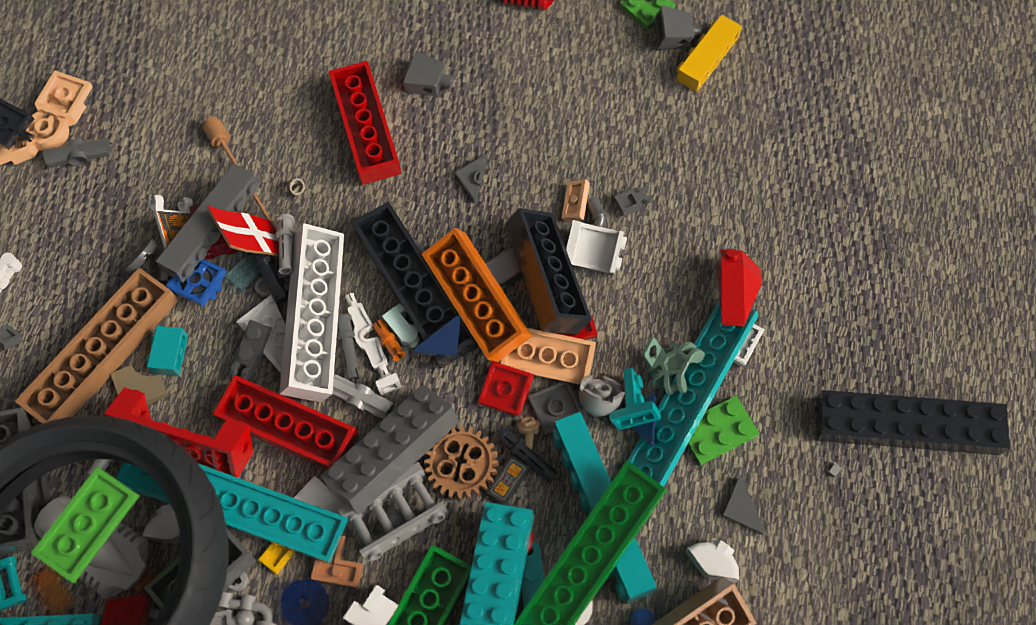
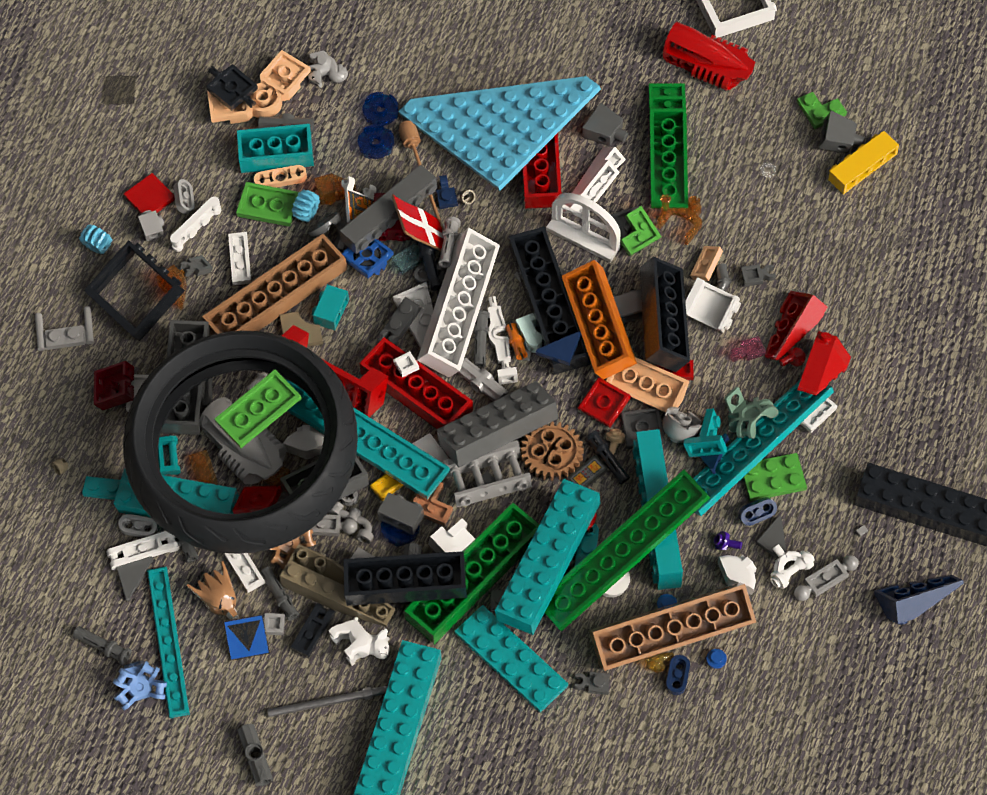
camera: 15 degrees right, 5 degrees down
(51, 317) = (239, 258): none -> white plate
(67, 181) = (275, 147): none -> teal brick
(72, 246) = (267, 204): none -> bright green plate
(73, 209) = (284, 171): none -> light nougat beam
(108, 77) = (324, 66): none -> light grey animal
(114, 238) = (305, 205): none -> medium azure gear
(138, 212) = (330, 188): none -> clear orange slope
(179, 121) = (385, 101): none -> clear blue plate
(182, 158) = (378, 150): none -> clear blue plate
(267, 402) = (406, 364): none -> white tile
(272, 190) = (446, 196): none -> dark blue plate
(301, 591) = (401, 513): none -> dark grey brick
(314, 101) = (502, 126): none -> medium azure plate
(430, 138) = (598, 176): none -> white wedge
(433, 201) = (582, 235): none -> white window
(499, 182) = (644, 232): none -> bright green plate
(500, 82) = (668, 144): none -> green slope
(541, 148) = (691, 214): none -> clear orange piece
(611, 87) = (767, 173): none -> clear hinge
(650, 285) = (750, 348): none -> clear pink plate
(684, 524) = (722, 541): none -> dark purple plate
(692, 238) = (799, 316): none -> red wedge
(701, 283) = (795, 356): none -> red plate
(714, 478) = (757, 512): none -> dark blue plate
(782, 526) = (802, 560): none -> white piece
(814, 540) = (826, 578): none -> light grey plate
(920, 543) = (910, 602): none -> dark blue wedge

